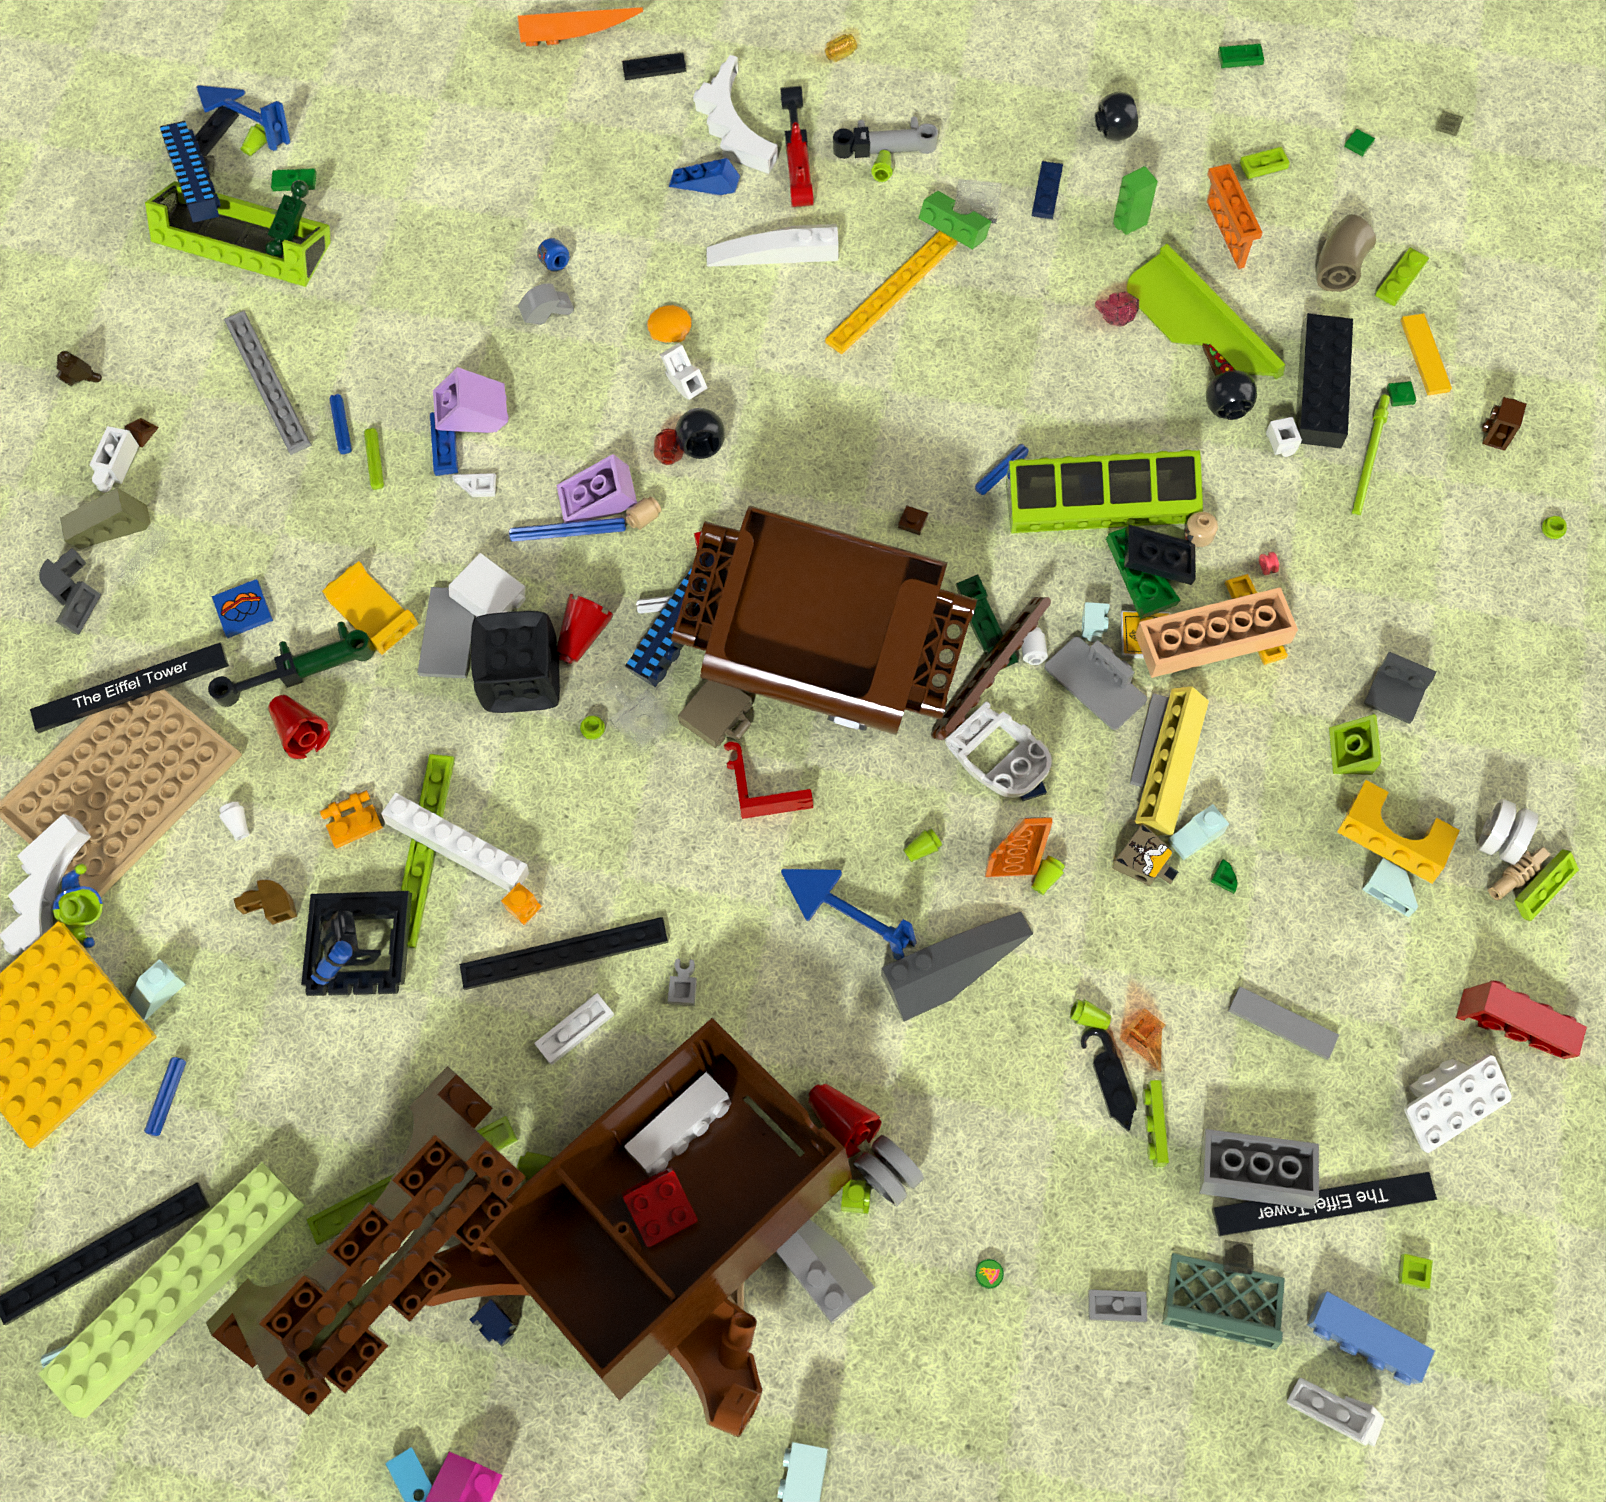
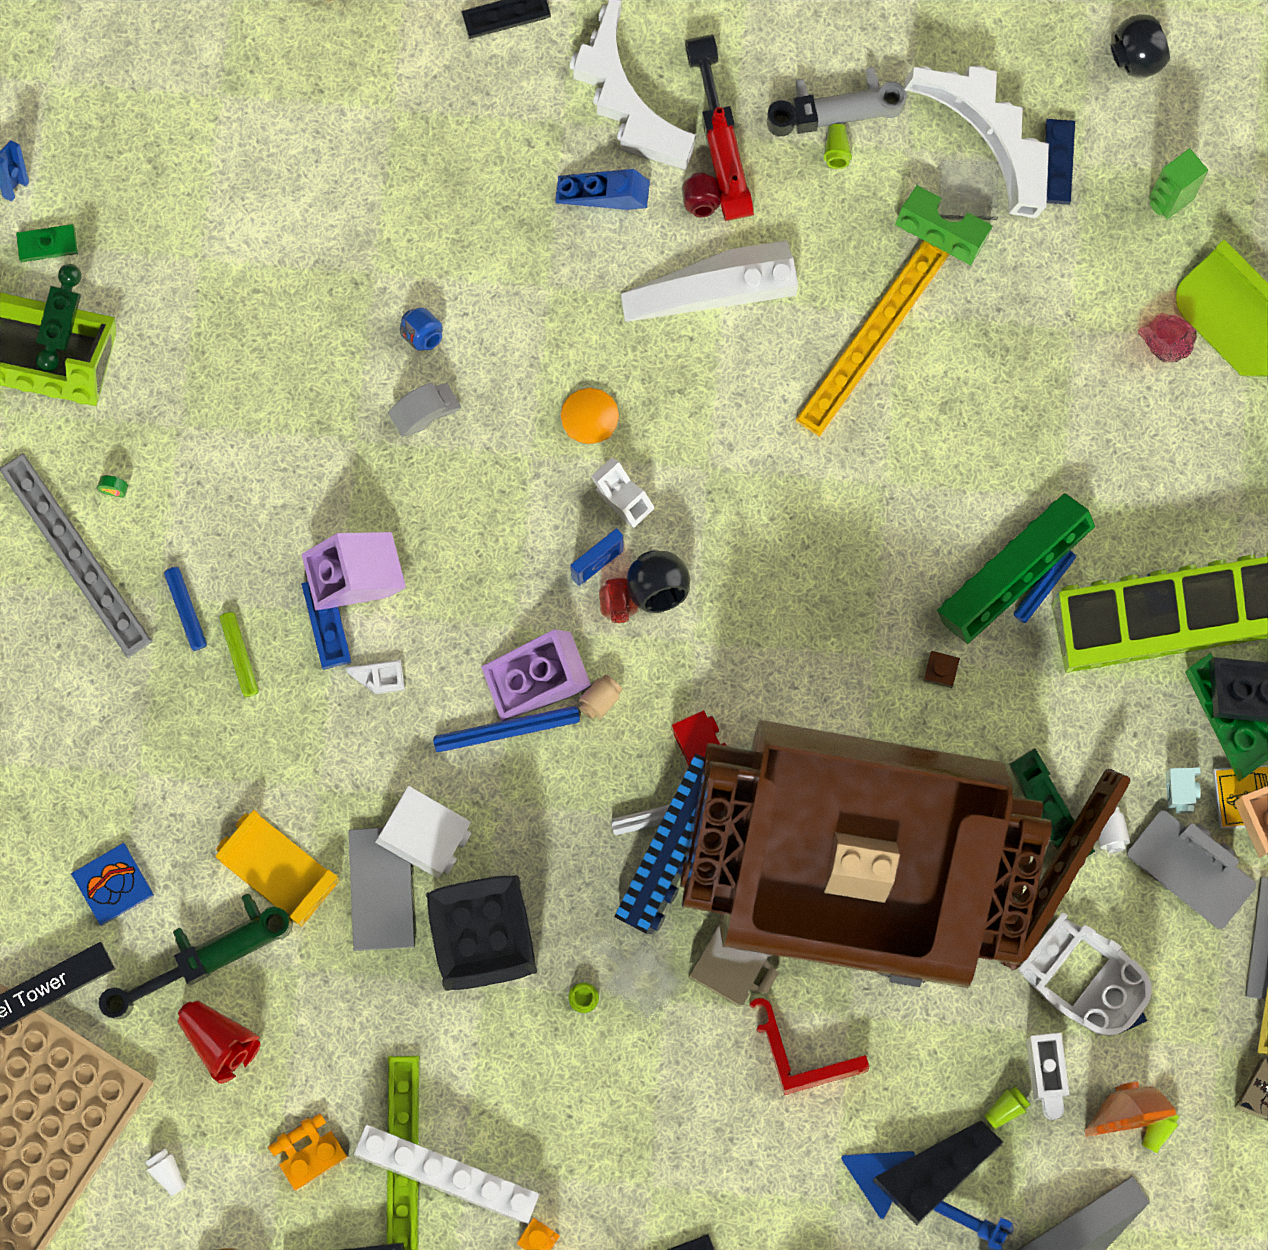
camera: 10 degrees left, 10 degrees up
(304, 336) = (112, 486): none -> green tile
(580, 628) = (548, 870): red cone -> none
(656, 412) = (597, 557): none -> blue tile
(776, 186) = (701, 194): none -> dark red head
(820, 630) = (861, 867): none -> tan slope
(854, 887) = (935, 1173): none -> black wing
(959, 819) = (1048, 1072): none -> white brick
(980, 452) = (1016, 568): none -> green brick
(1003, 156) = (1000, 124): none -> white arch

